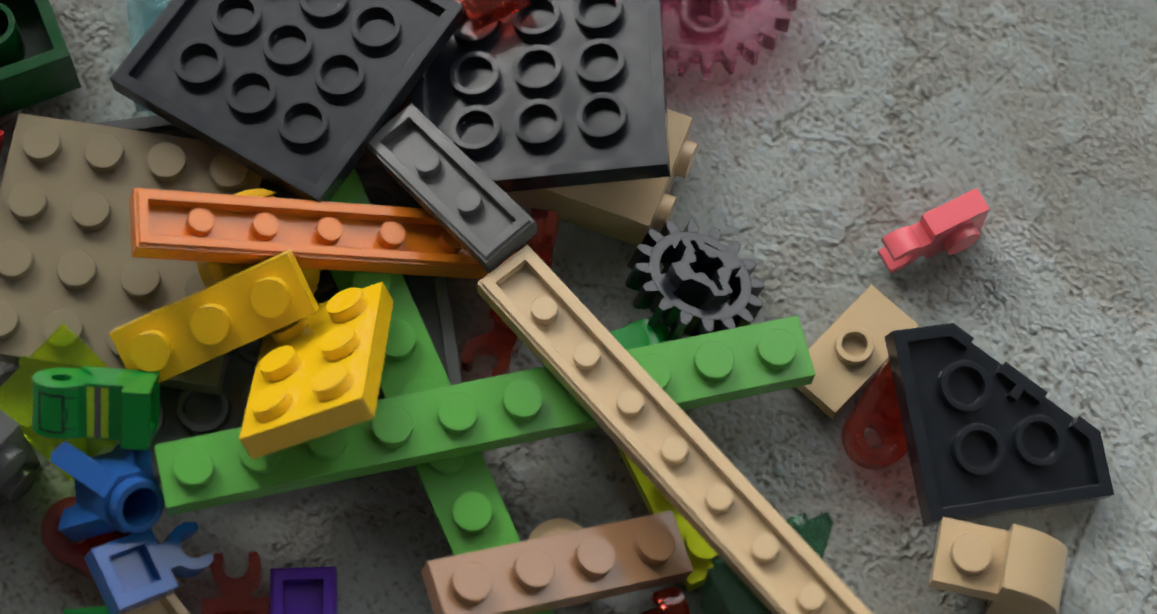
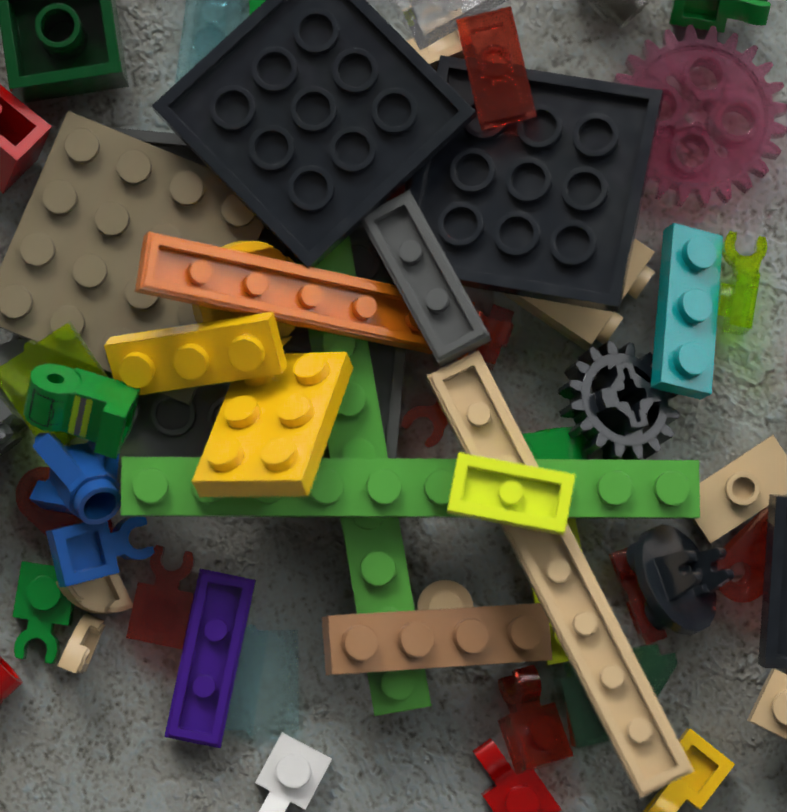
camera: 15 degrees right, 15 degrees up
(600, 374) = (511, 493): none -> neon yellow plate
(743, 176) = (687, 311): none -> teal plate
(783, 492) = (634, 599): none -> clear red plate
(794, 152) = (739, 297): none -> clear neon green plate
(809, 452) = (677, 579): none -> black plate

